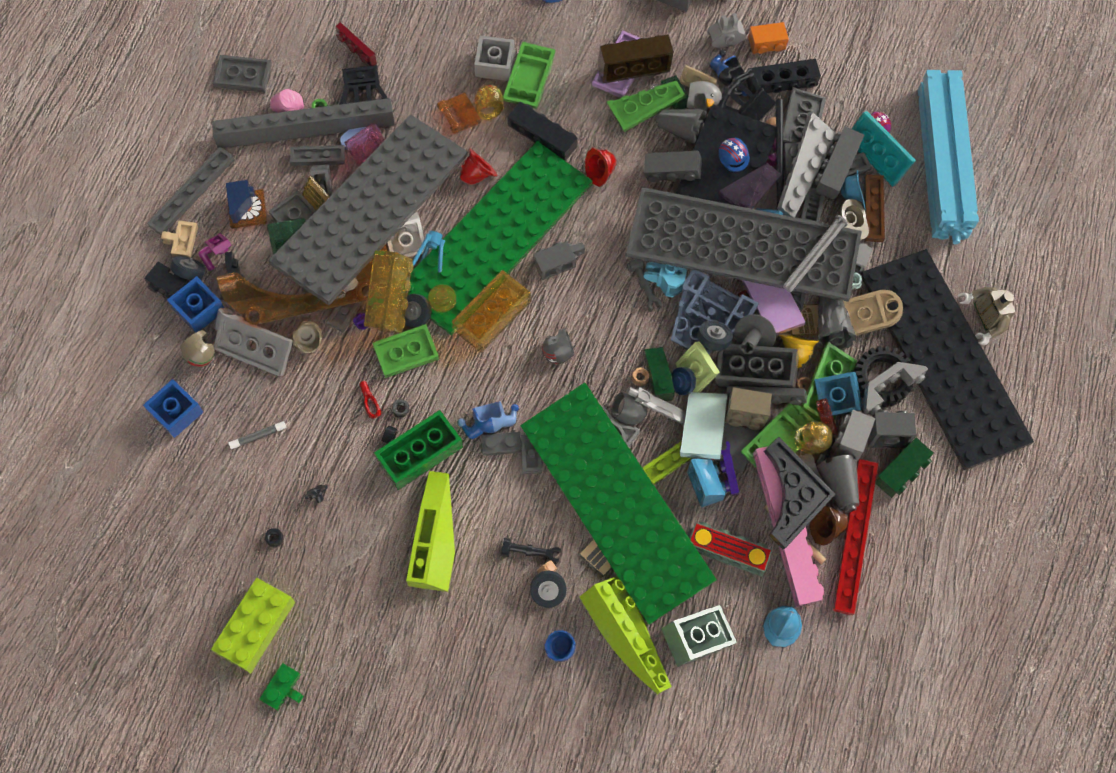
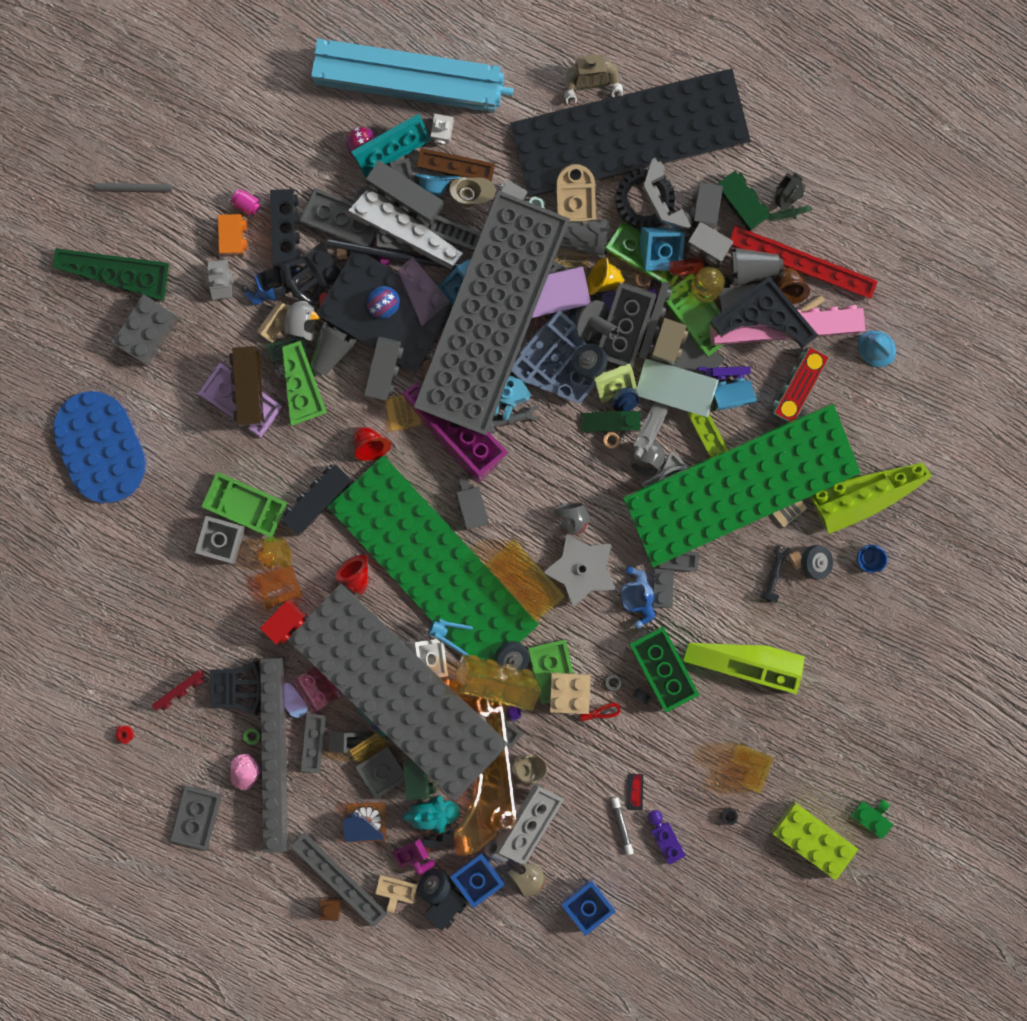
camera: 80 degrees left, 20 degrees up
(162, 185) = (330, 909): none -> reddish brown brick
(247, 477) = (665, 837): none -> dark purple plate
(256, 260) = (432, 814): none -> teal head
(293, 443) = (635, 792): none -> sticker
(312, 11) = (124, 729): none -> red plate
(316, 493) = (691, 772): black plant -> none
(329, 554) = (756, 764): none -> clear yellow brick
(385, 362) = (570, 693): none -> tan brick
(427, 110) = (283, 622): none -> red brick
(442, 298) = (505, 628): clear yellow plate -> none
(506, 375) = (567, 569): none -> light grey plate
(608, 253) = (472, 450): none -> magenta wedge
(630, 192) = (401, 414): none -> clear yellow piece
(698, 635) = (878, 428): sand green slope -> none
(799, 45) = (245, 202): none -> dark pink brick
(815, 253) = (519, 244): light grey axle -> none
(904, 520) = (790, 212): none -> clear green piece
(905, 191) = (442, 129): none -> white brick
(927, 511) = (789, 190): none -> pearl dark grey hand

